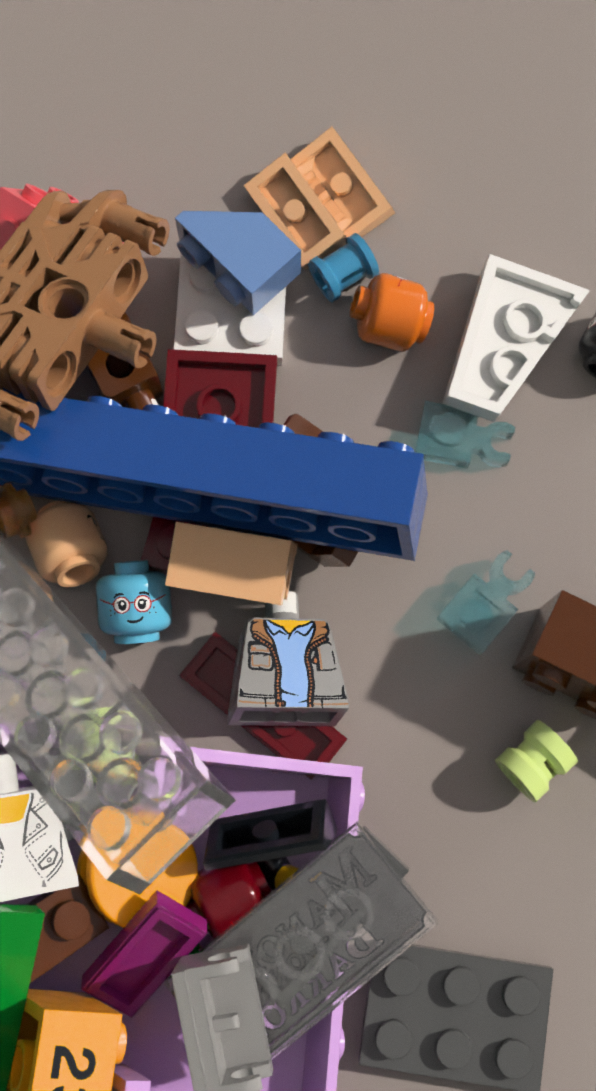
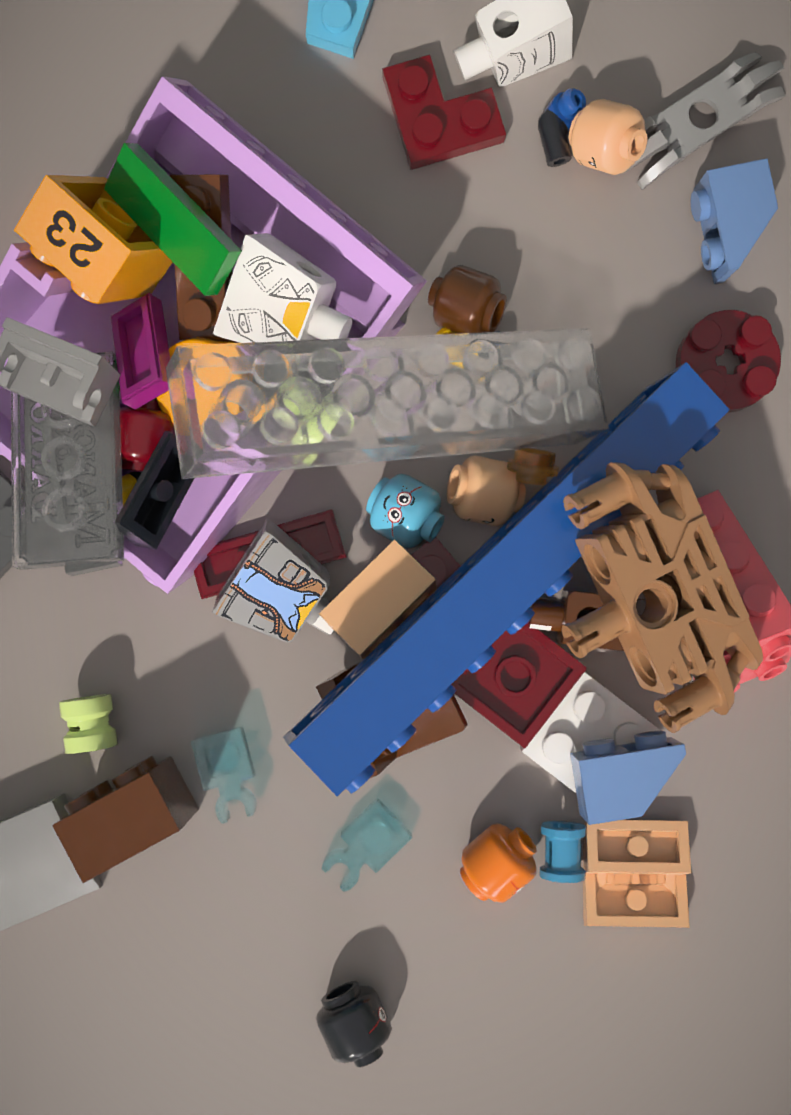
camera: 125 degrees right, 10 degrees up
(506, 334) = (423, 942): white wing -> none

